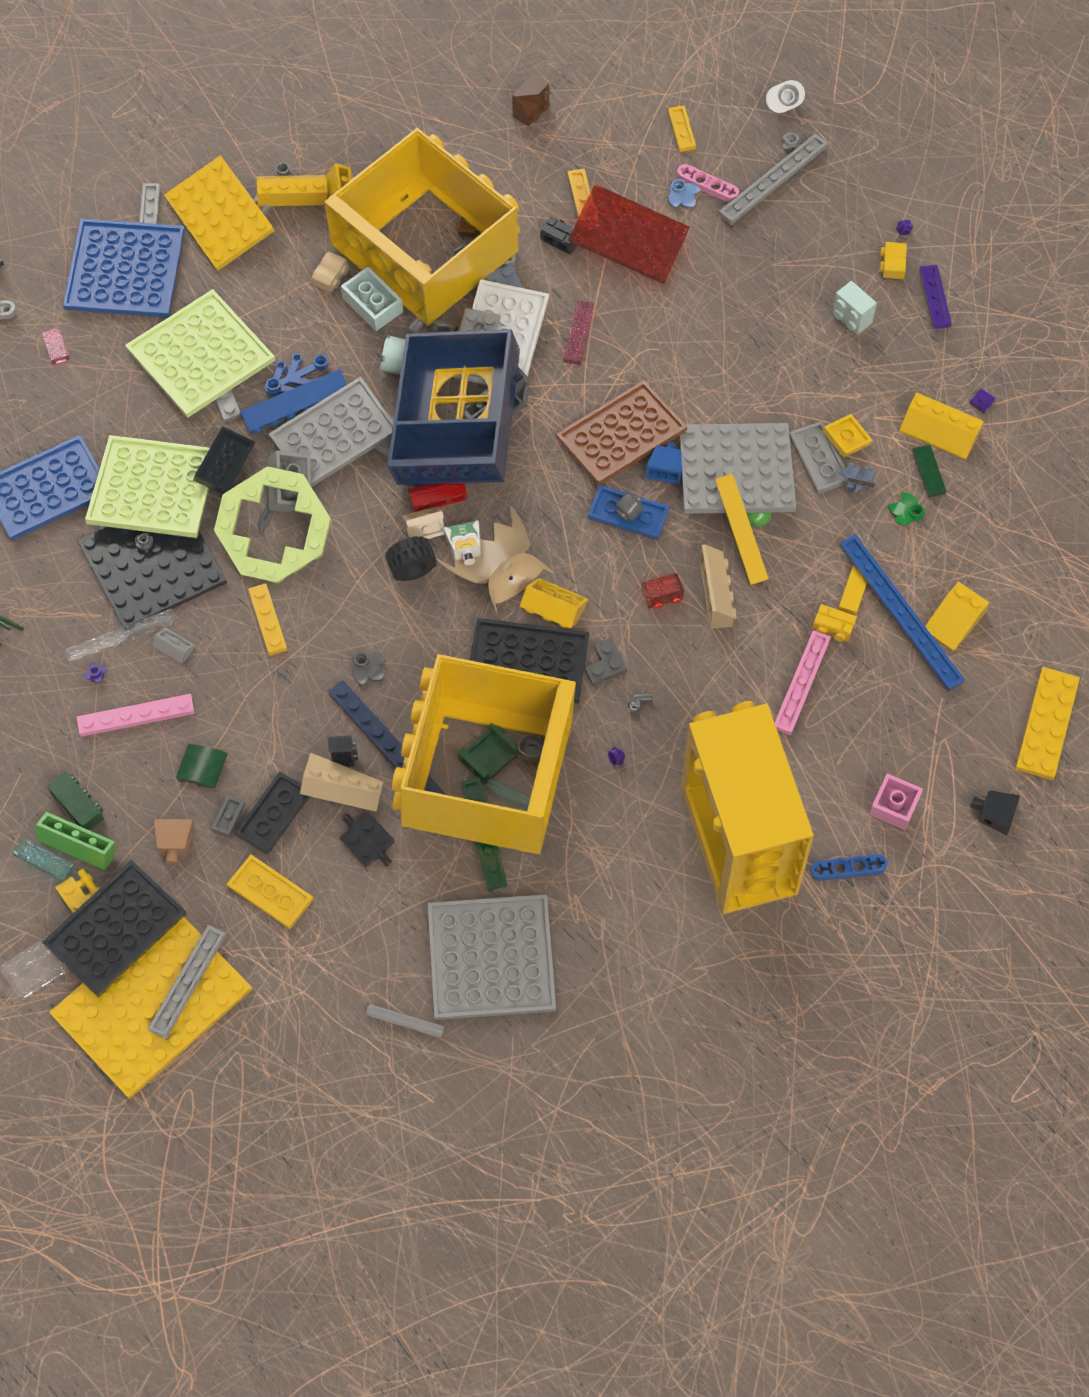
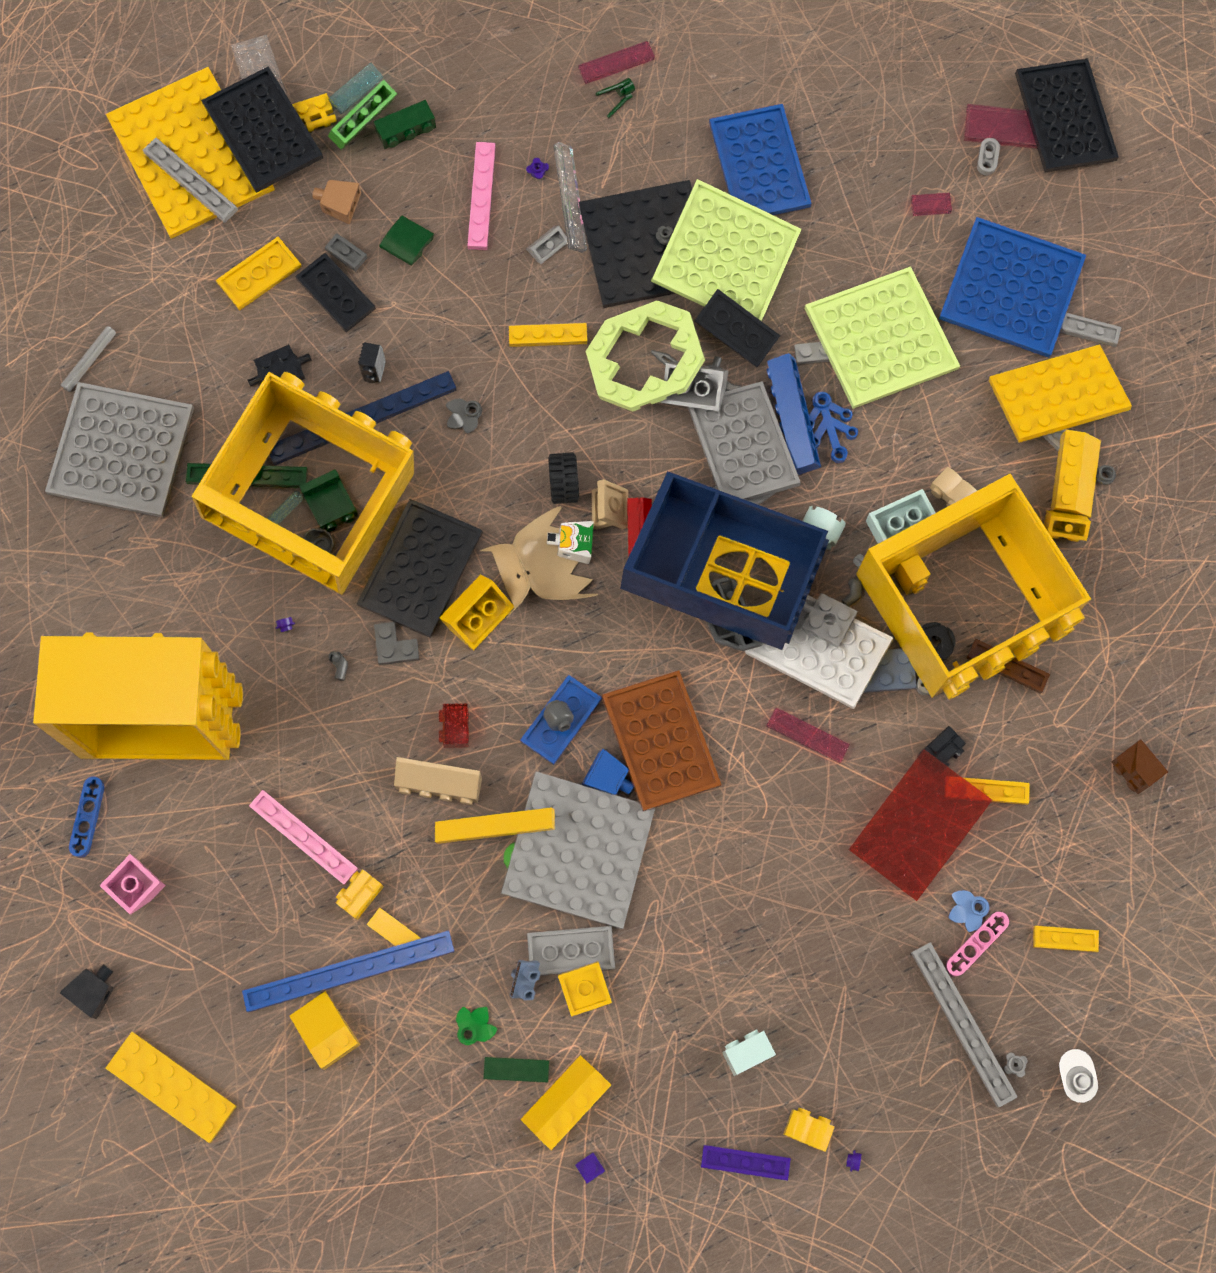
camera: 105 degrees right, 10 degrees up
(340, 784) = (339, 352): tan wedge -> none

